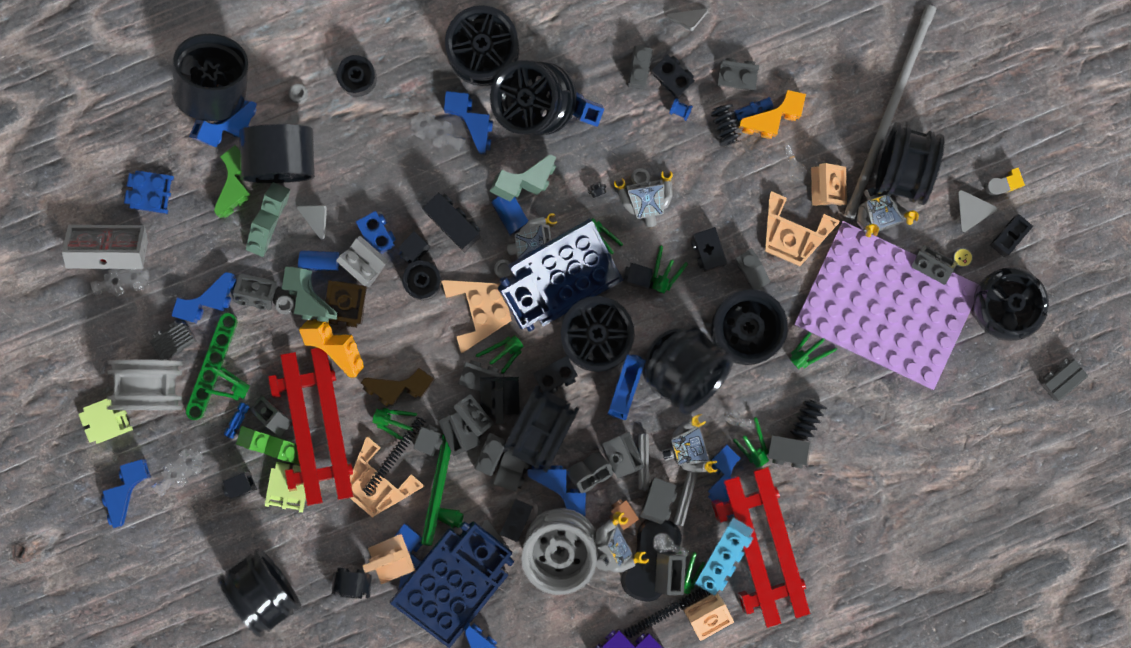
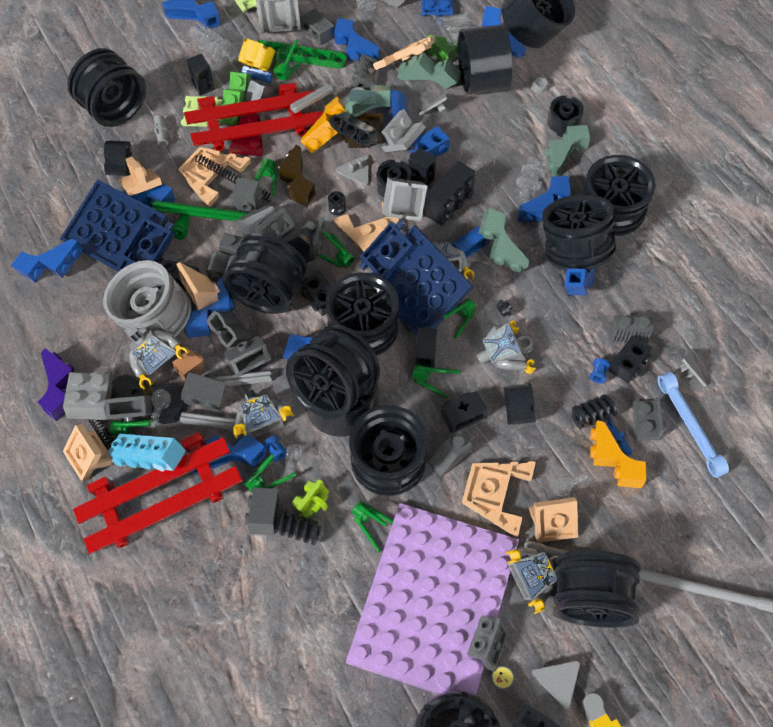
camera: 80 degrees right, 25 degrees down
(207, 174) = (451, 25): none -> clear slope
(218, 417) = (256, 55): none -> yellow brick
(234, 235) = (406, 52): none -> light nougat wing
(296, 359) = (311, 98): none -> light grey axle
(309, 536) = (160, 131): none -> light grey pin
(349, 433) = (248, 145): none -> dark red wing
(356, 315) = (347, 125): none -> black beam
(393, 319) = (355, 170): none -> light grey piece
(404, 92) = (558, 151): none -> sand green arch
(443, 348) = (336, 203): none -> black wheel
(456, 267) = (404, 197): none -> light grey piece
(549, 497) = (198, 286): none -> light nougat slope
(653, 613) = (87, 395): none -> light grey brick
(708, 45) = (715, 463): none -> light blue piece
(712, 194) = (519, 404): none -> black brick
(725, 435) = (273, 442): none -> blue bush
(783, 402) = (313, 500): none -> lime hips

